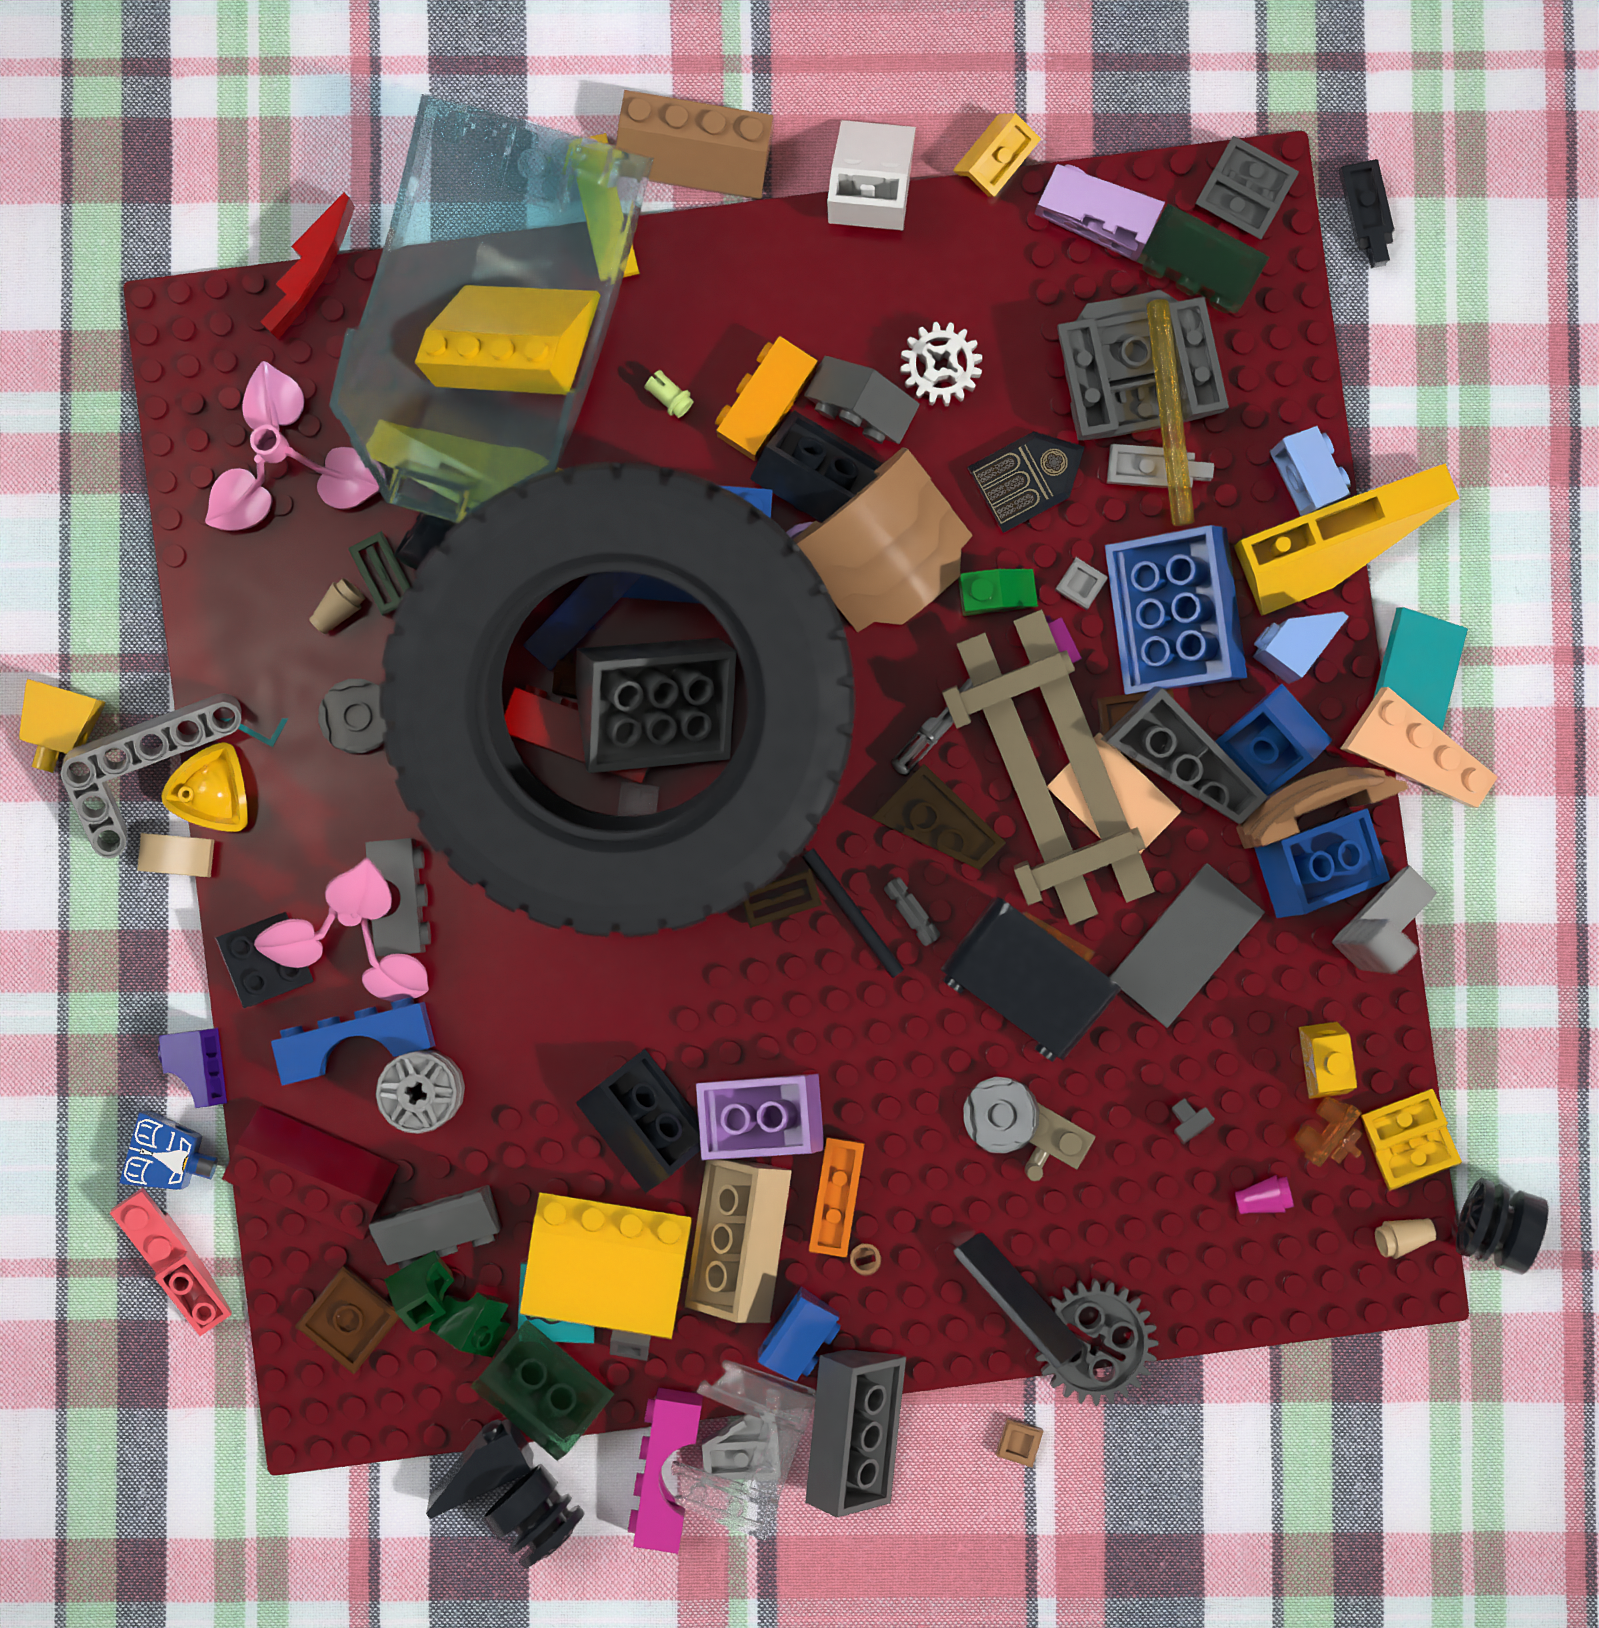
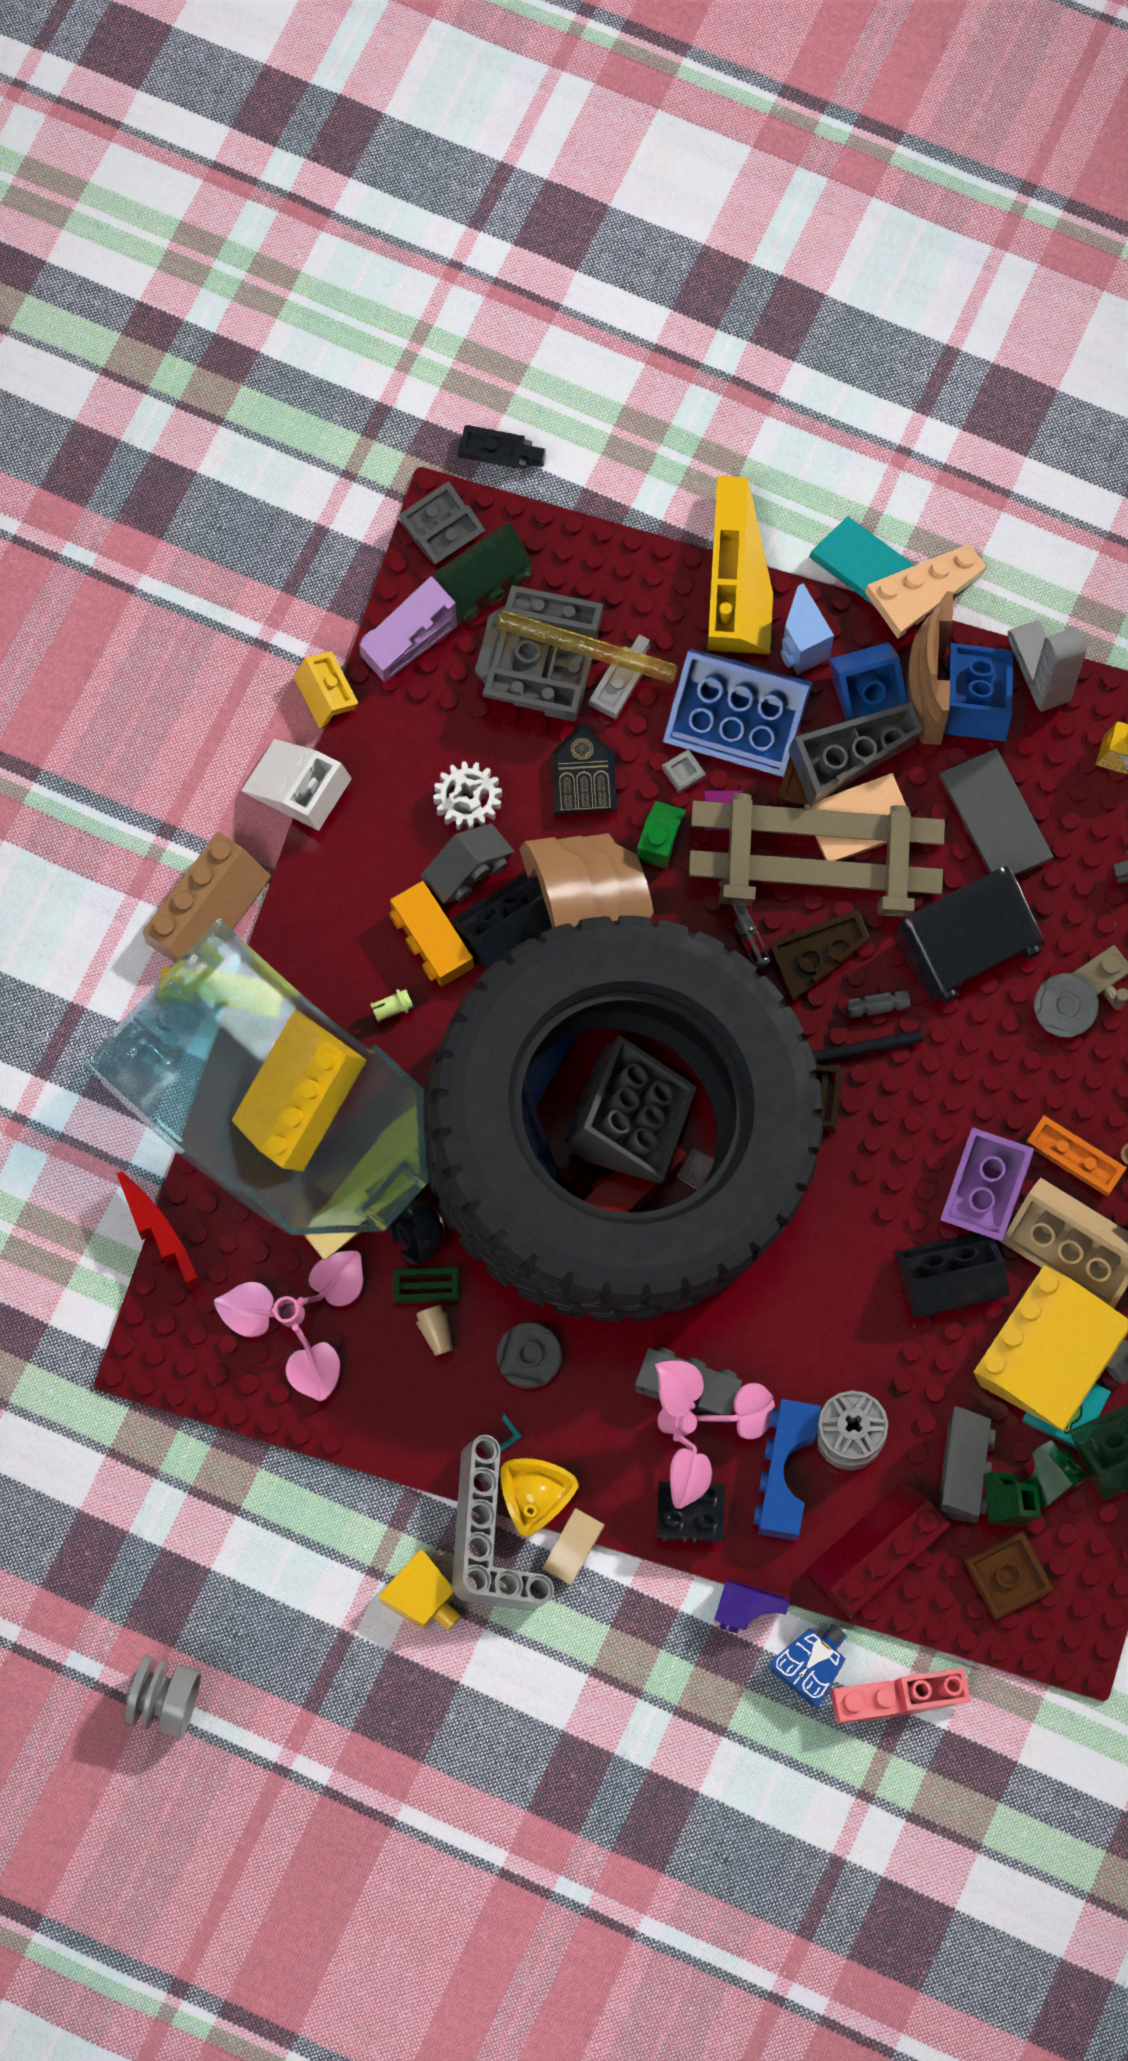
camera: 65 degrees left, 15 degrees down
(1310, 470) = (678, 571): light blue slope -> none

